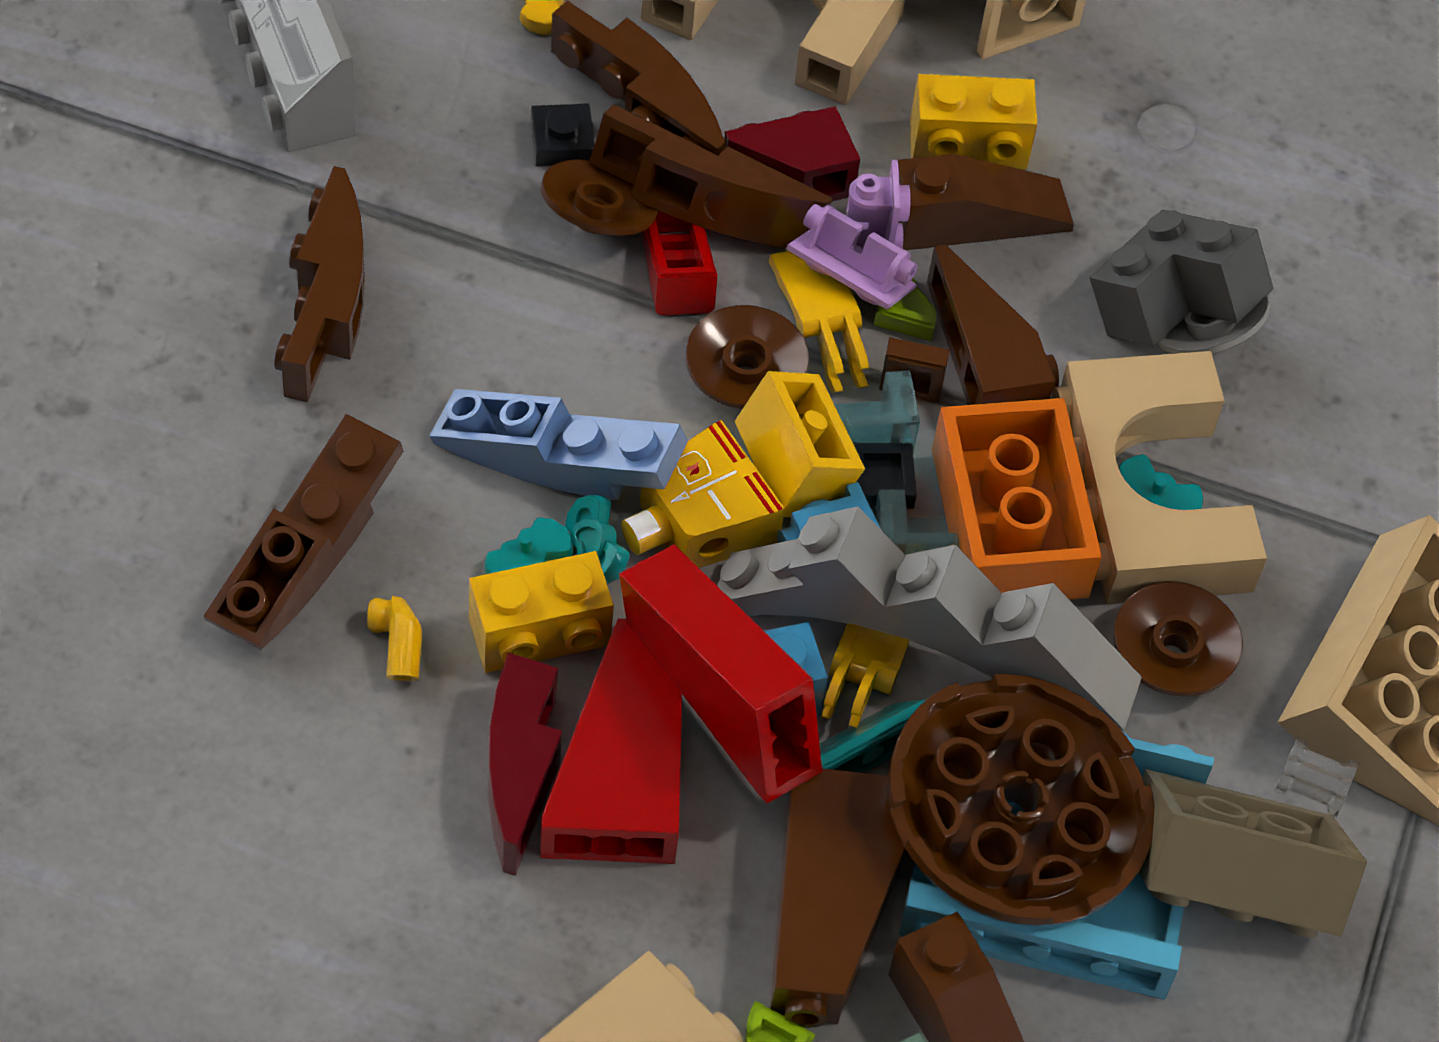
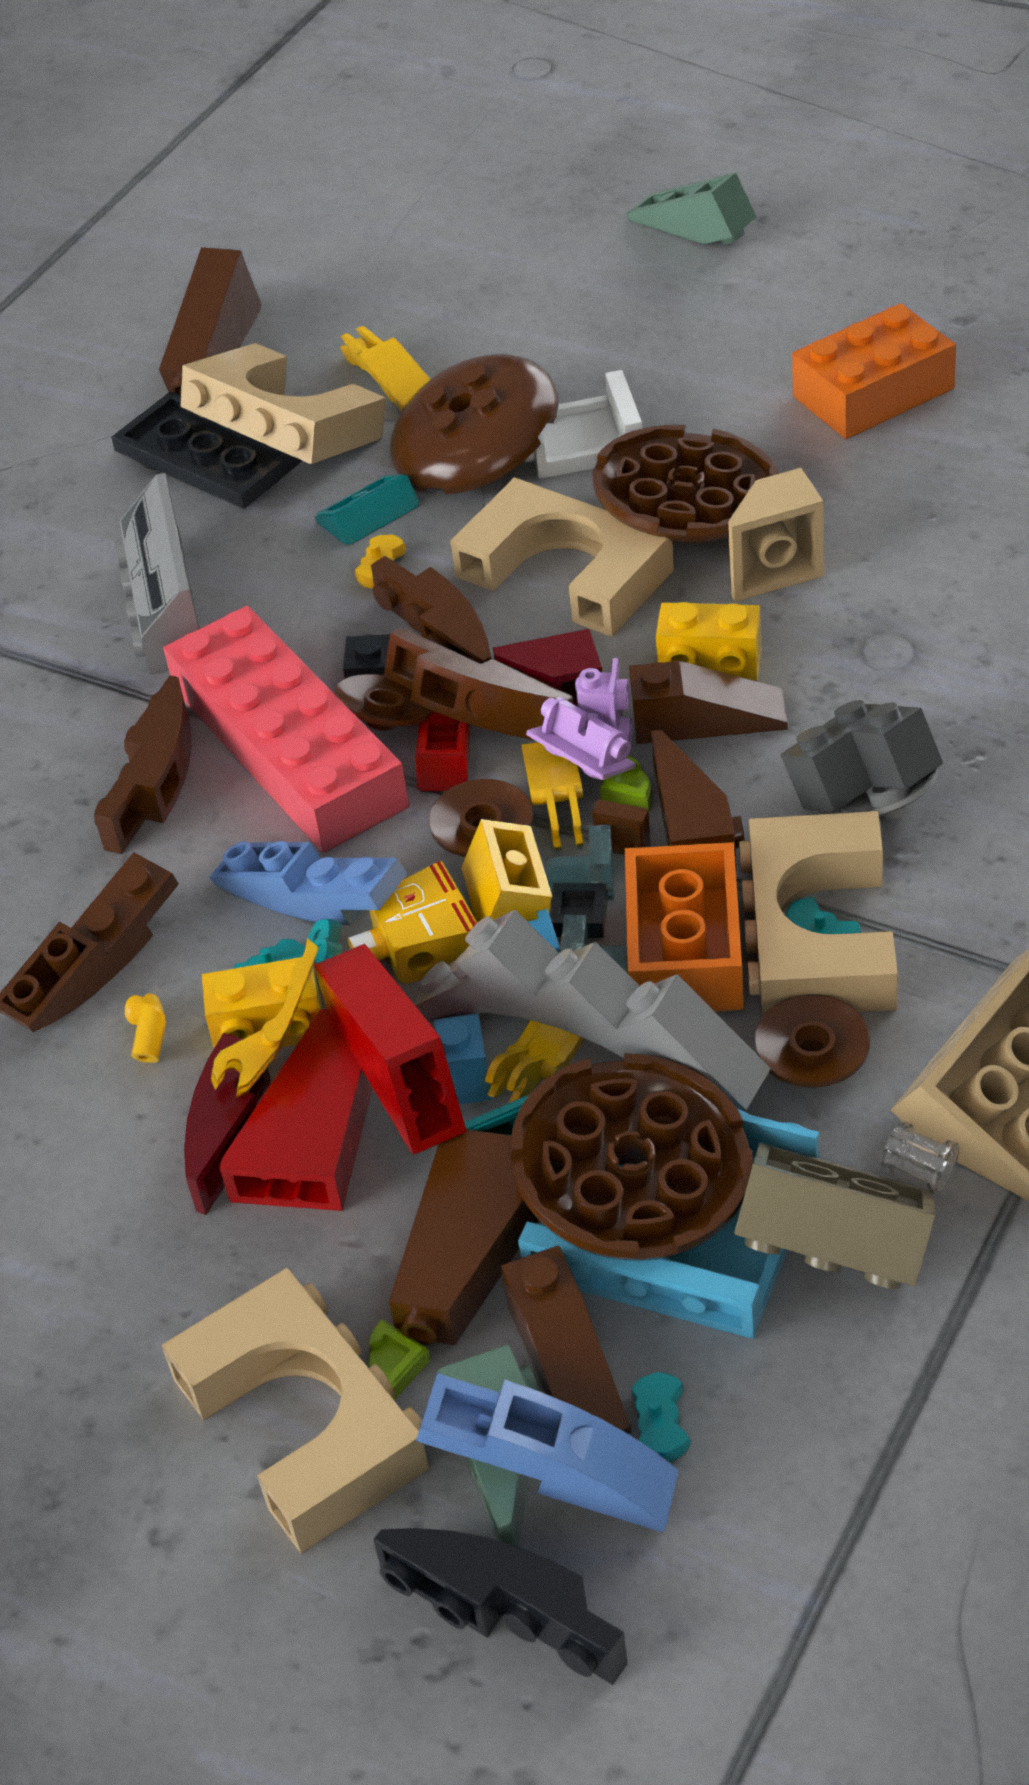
camera: 20 degrees right, 10 degrees down
(487, 234) = (288, 728): none -> coral brick
(564, 685) = (258, 1050): none -> yellow arm

